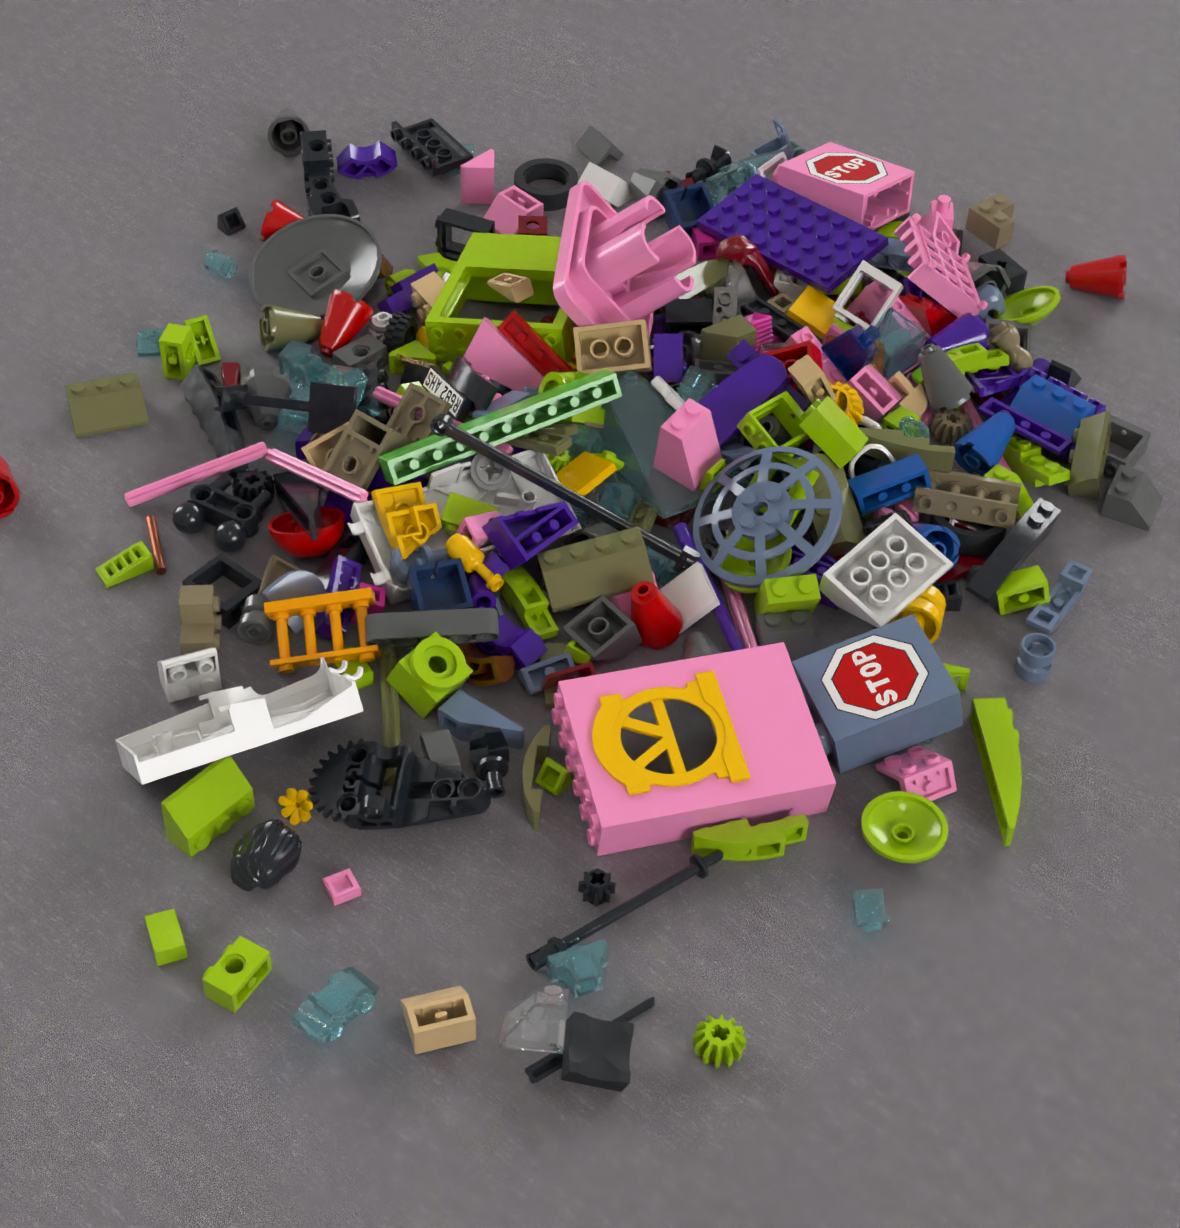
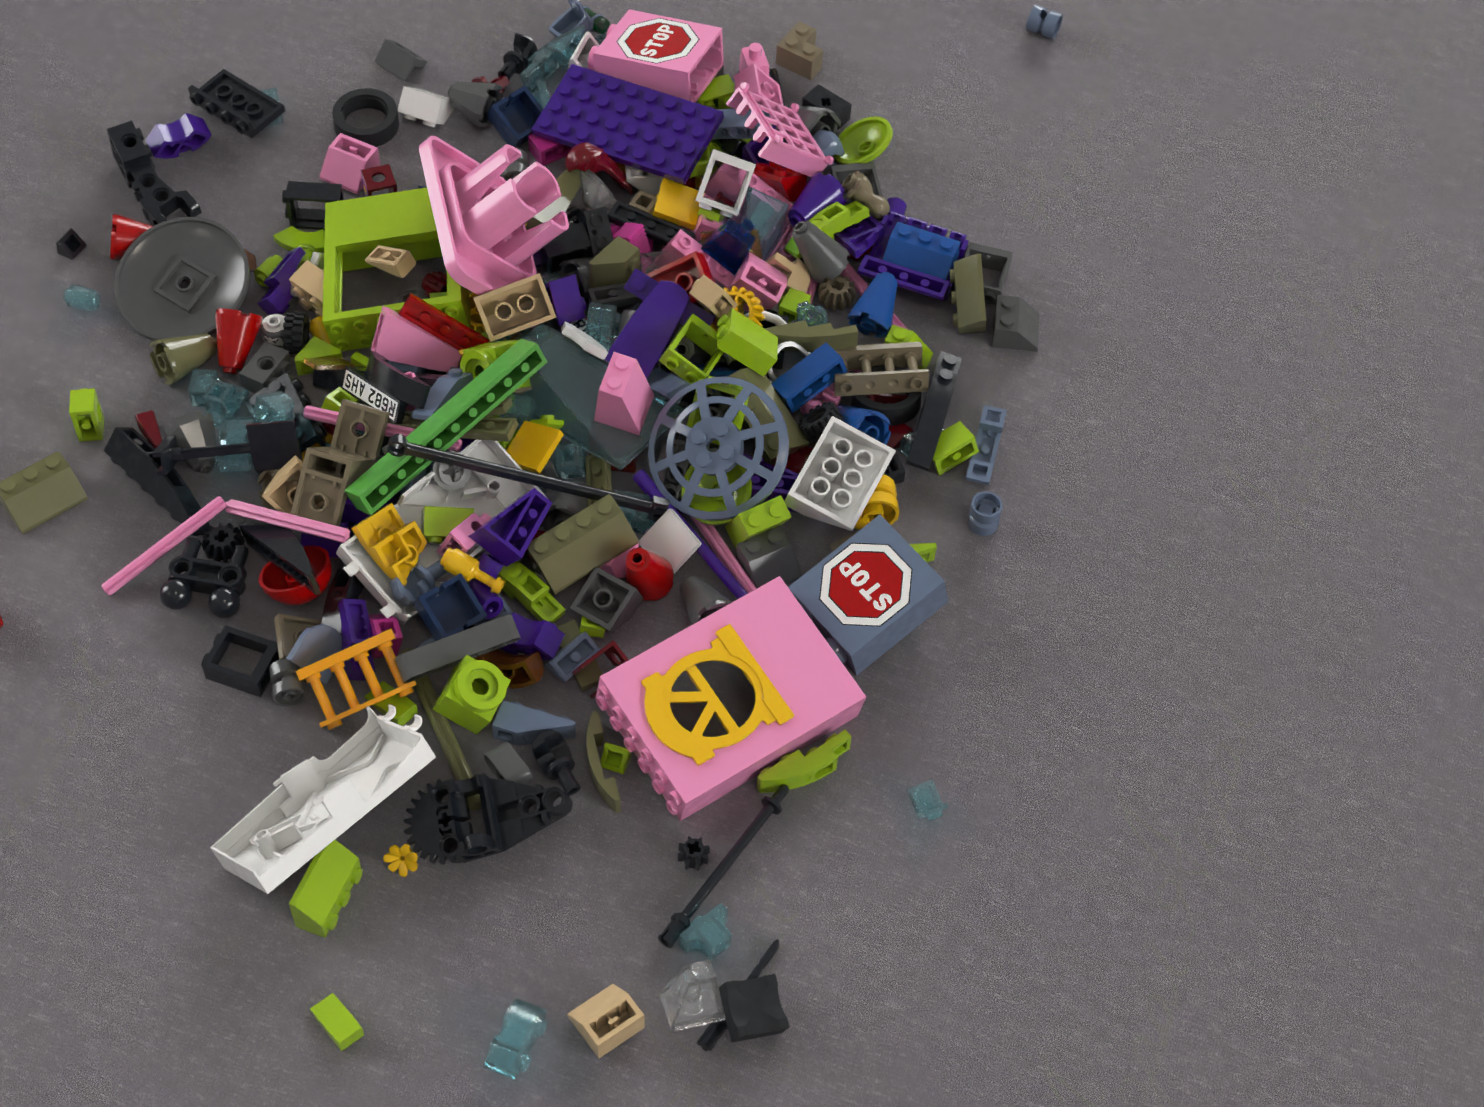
camera: 20 degrees left, 10 degrees up
(134, 562) = (136, 648): lime slope -> none
(149, 342) = (53, 403): clear light blue piece -> none
(155, 545) = (154, 630): copper bar -> none
(190, 674) = (249, 758): white slope -> none
(199, 618) = (235, 701): dark tan brick -> none
(203, 340) = (107, 394): lime slope -> none
(230, 989) = (417, 1053): lime brick -> none
(265, 855) = (395, 918): black hair -> none
(285, 133) = (85, 123): dark grey cone -> none
(302, 440) = (251, 480): dark purple slope -> none
(341, 887) = (472, 923): bright pink tile -> none
(478, 179) = (301, 132): bright pink slope -> none
(711, 473) = (651, 419): lime slope -> none
(719, 1041) = (846, 971): lime gear -> none
(905, 817) = (935, 704): lime dish -> none
(921, 772) = (926, 656): bright pink bracket -> none
(1000, 759) = (987, 622): lime slope -> none
(1029, 465) = (922, 316): lime slope -> none
(1063, 373) = (917, 209): black slope -> none
(1100, 276) = (916, 91): red cone -> none

